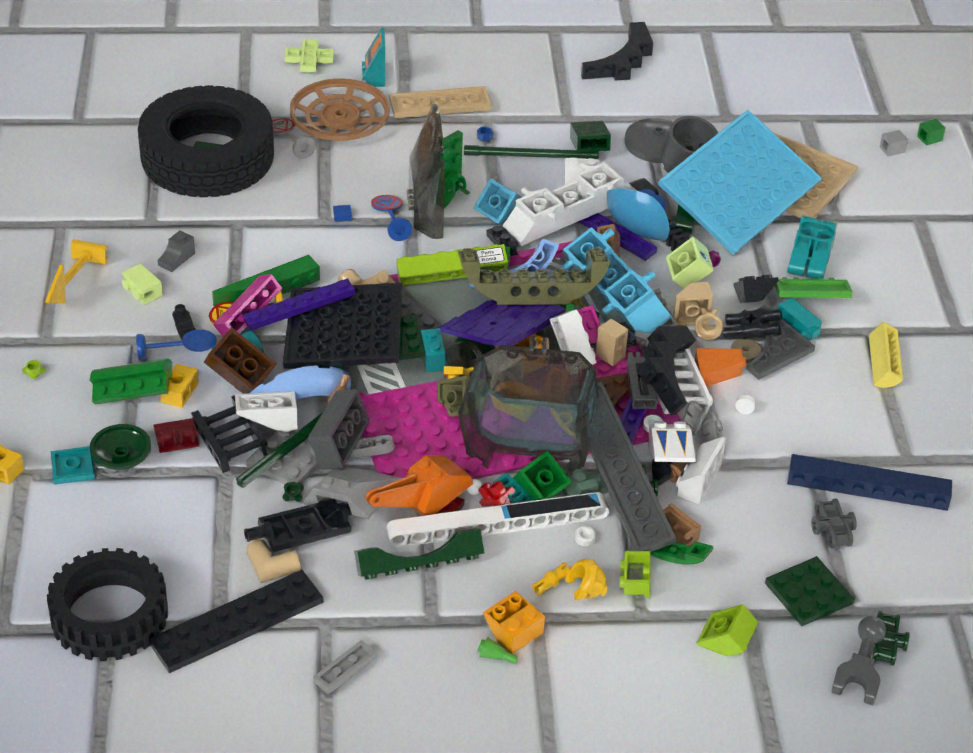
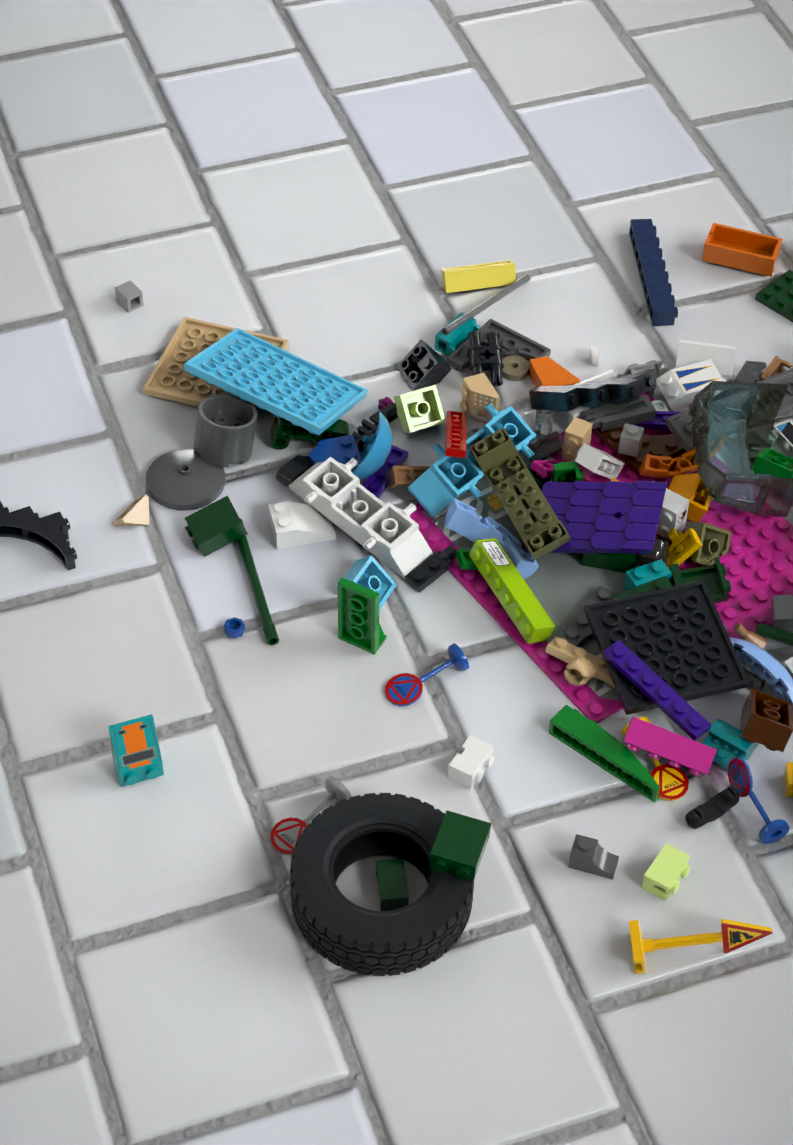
camera: 105 degrees left, 5 degrees up
(195, 151) = (459, 845): none -> dark green brick
(296, 215) = (470, 765): none -> white brick
(309, 55) = (121, 847): yellowish green plate -> none
(339, 114) = (247, 764): medium nougat dish -> none
(342, 213) = (441, 725): blue tile -> none
(416, 379) = (712, 575): none -> dark green panel
(428, 178) = (385, 617): clear smoke windscreen -> none
(448, 101) = (183, 684): tan plate -> none
(603, 369) = (631, 440): none -> light grey brick
(625, 110) = (135, 514): none -> slope
(626, 252) = (455, 434): none -> red tile
(673, 494) = (750, 372): none -> black hinge
(705, 331) = (500, 389): tan piece -> none
(812, 247) = (348, 330): teal connector -> none
(813, 288) = (408, 323): bright green hinge -> none
(831, 520) = (714, 287): dark grey axle -> none
(833, 343) = (484, 305): none -> piece
(887, 559) = (742, 249): none -> orange piece
(931, 132) = (98, 271): green brick -> none

